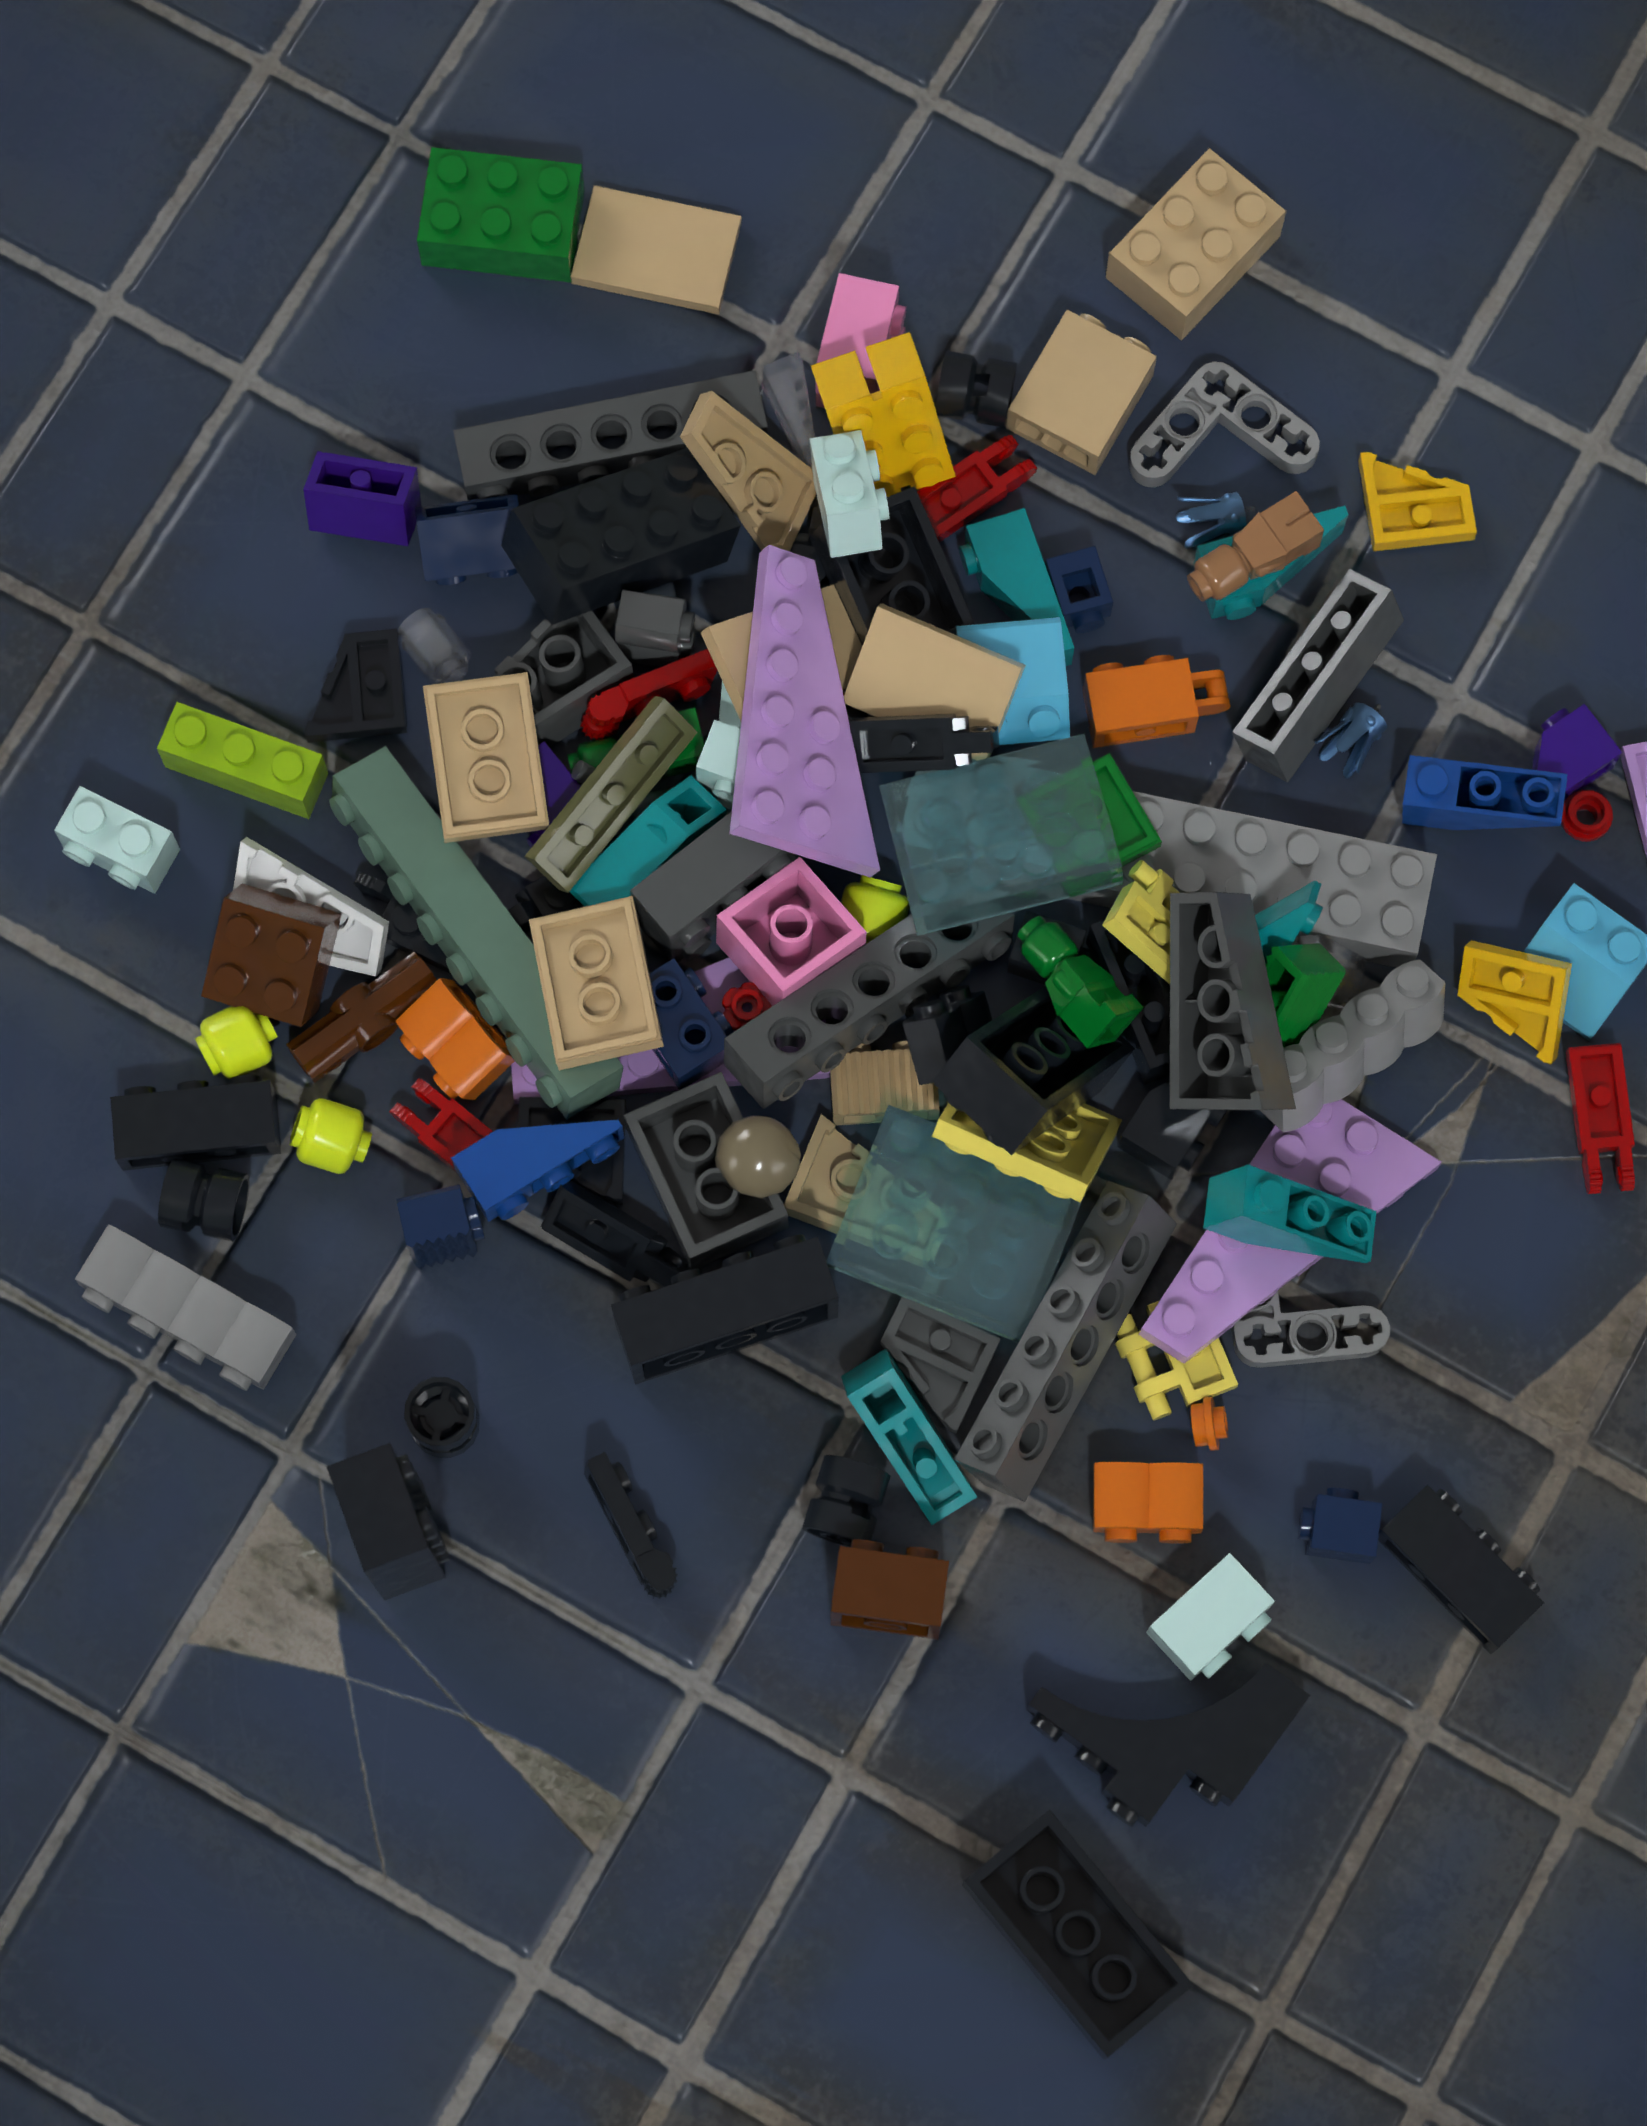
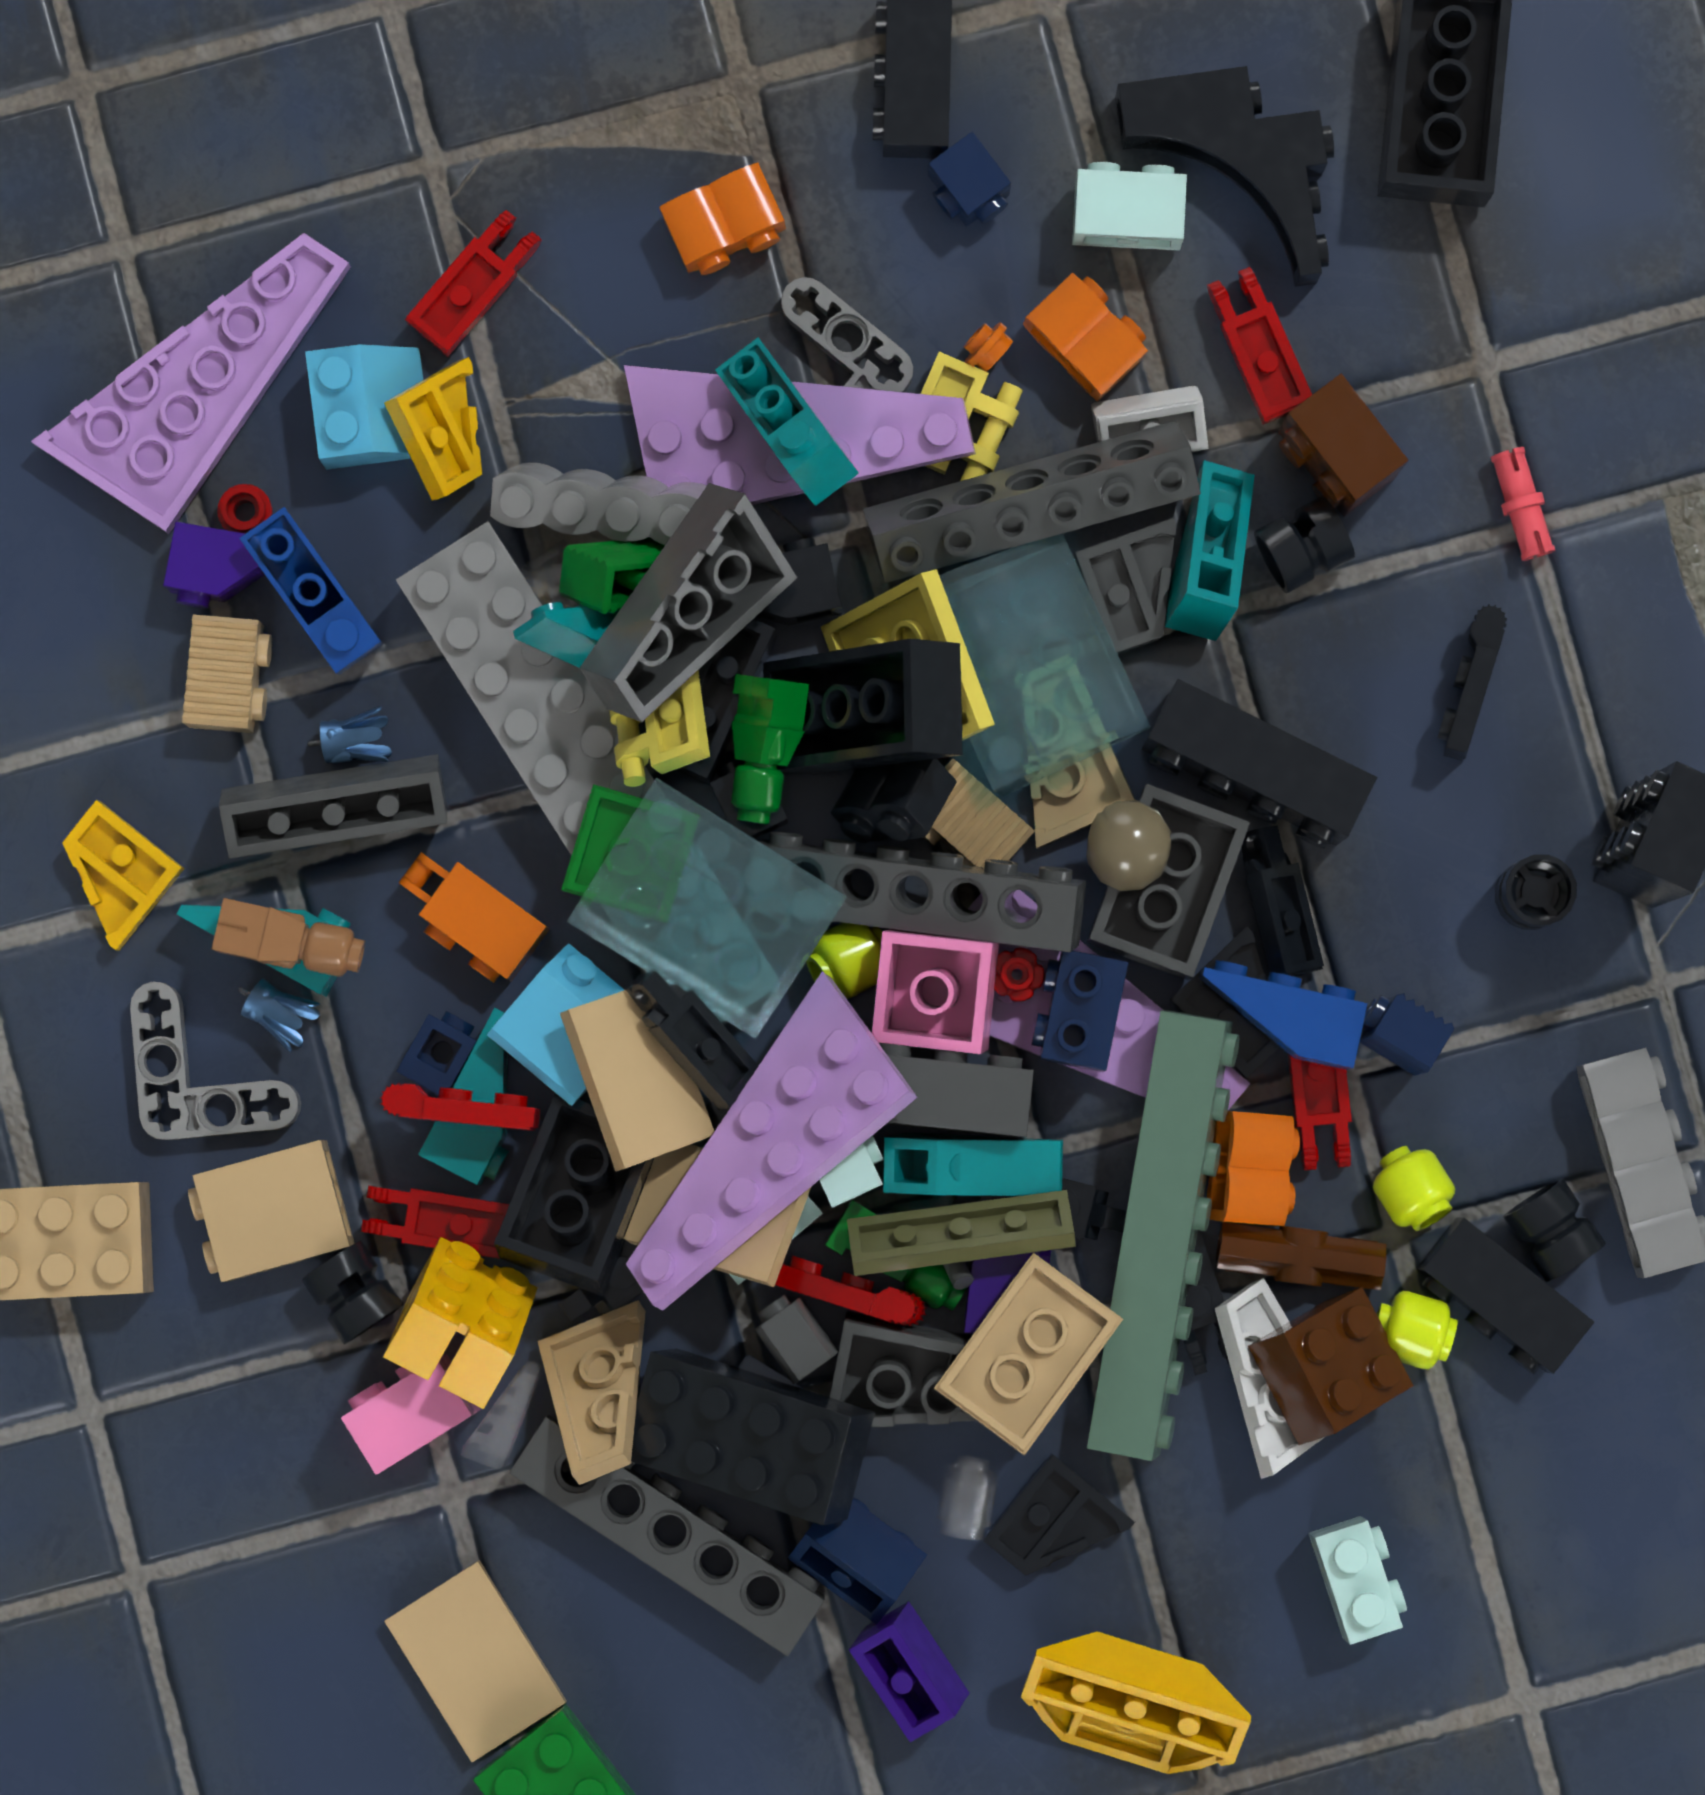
camera: 135 degrees left, 10 degrees up
(193, 622) = (1135, 1704): none -> yellow wedge
(242, 760) = (1201, 1550): lime brick -> none
(596, 983) = (1120, 1092): tan tile -> none
(720, 1692) = (1522, 503): none -> coral pin
(847, 493) = (559, 1279): light aqua brick -> none
(1015, 1615) = (1260, 349): none -> red hinge
(1028, 553) = (457, 1107): none -> red hinge
(1049, 1498) = (1143, 411): none -> white slope
(1481, 1329) = (723, 219): none -> orange brick
(1482, 694) = (226, 673): none -> tan brick

